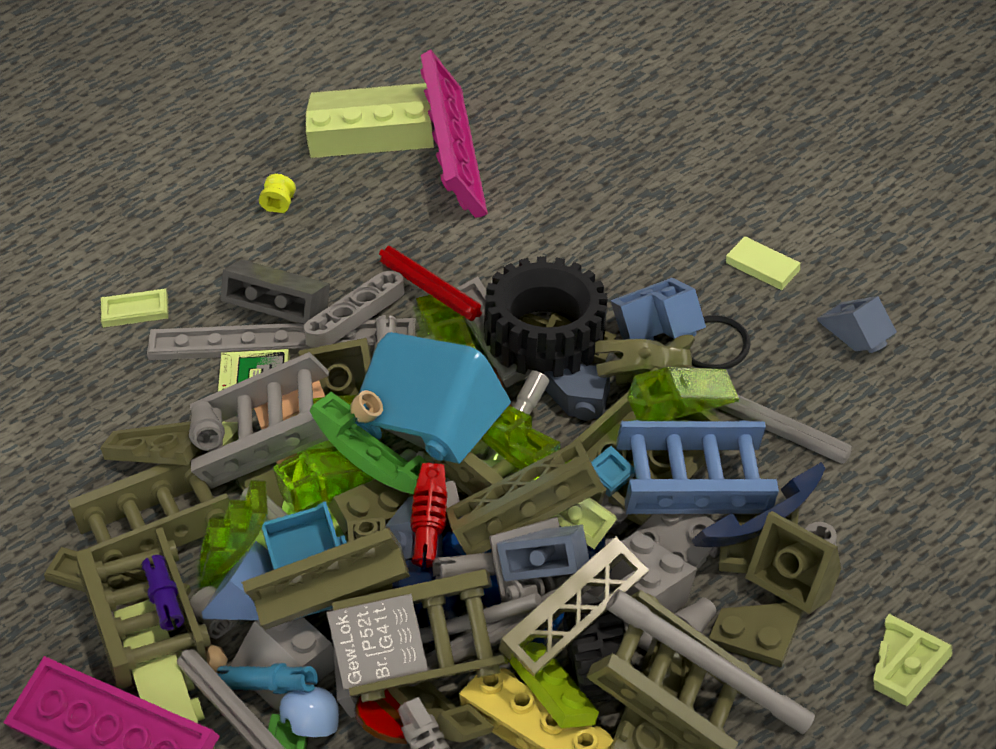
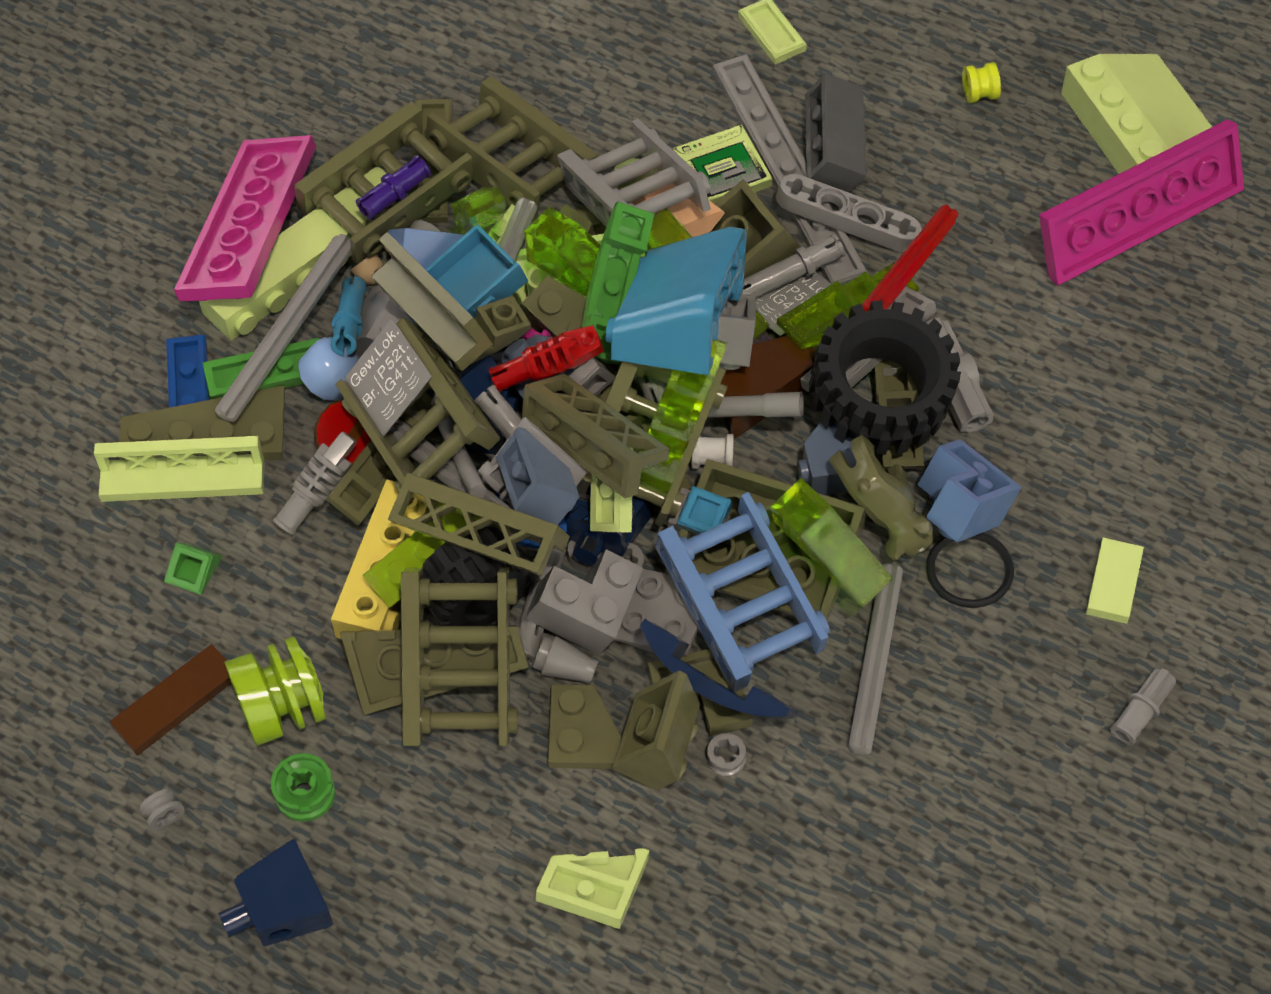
camera: 65 degrees right, 10 degrees up
(151, 445) = (591, 117): olive wing -> none
(205, 427) = (605, 140): light grey cone -> none
(372, 402) = (639, 258): tan hinge -> none
(641, 617) = (481, 773): light grey piece -> none
(860, 323) = (1054, 704): sand blue slope -> none
(876, 279) = (1143, 706): none -> light grey axle

